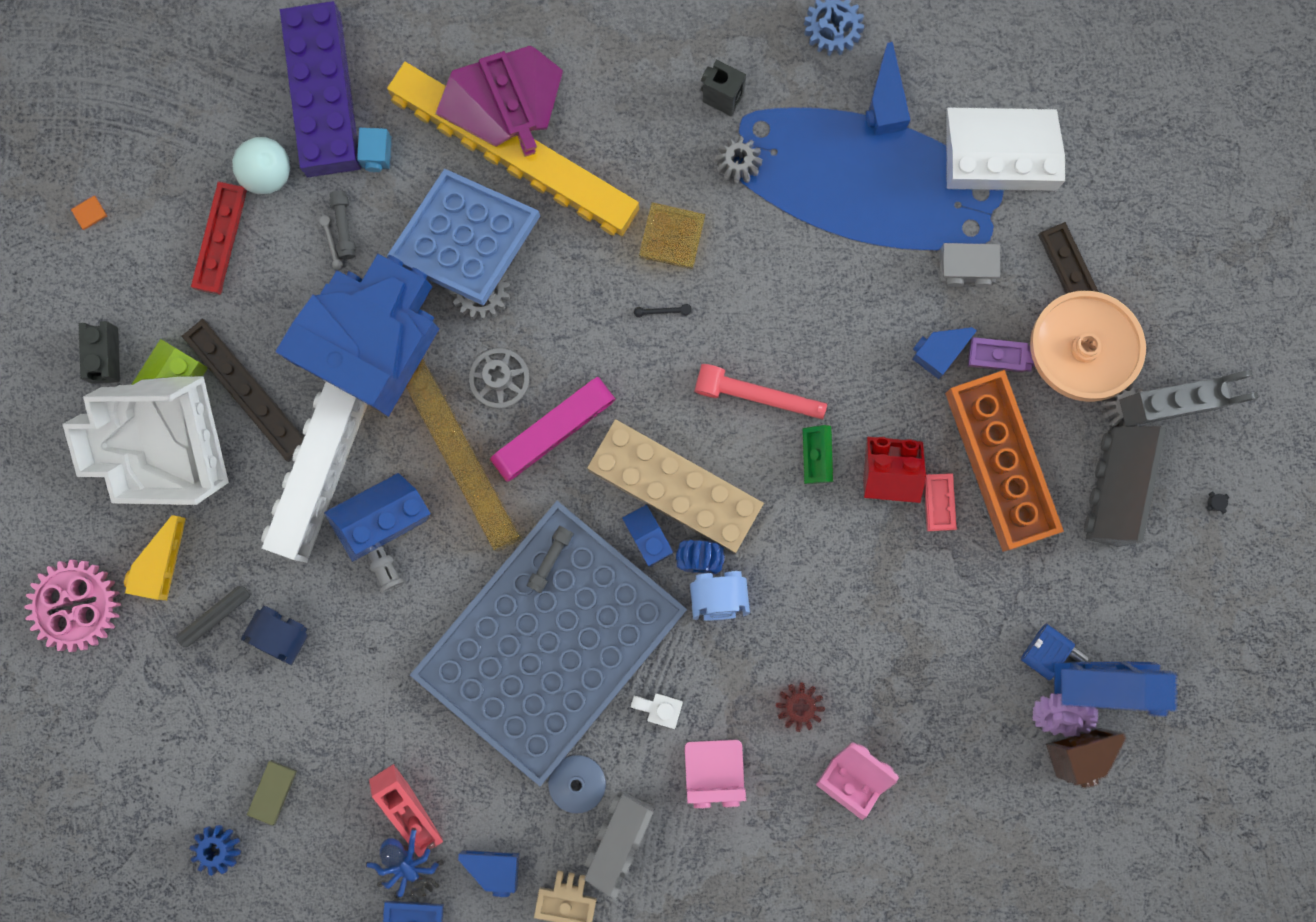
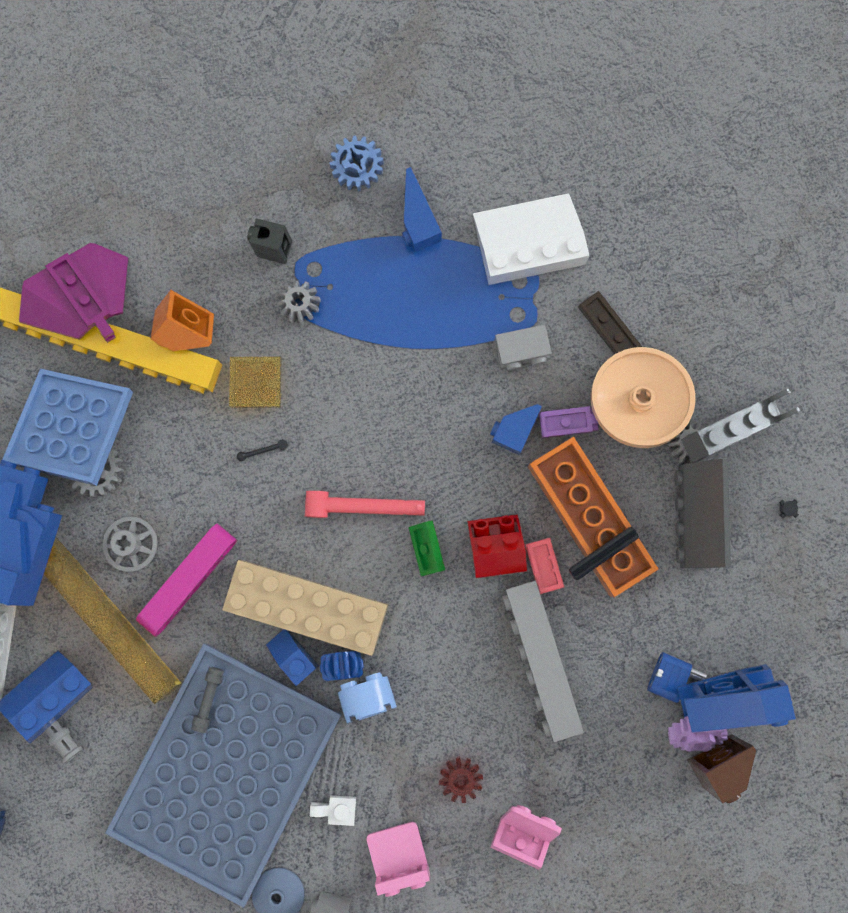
camera: 10 degrees left, 0 degrees up
(608, 154) = (181, 324): none -> orange slope
(916, 602) = (543, 661): none -> light grey brick
(1009, 500) = (603, 553): none -> black axle

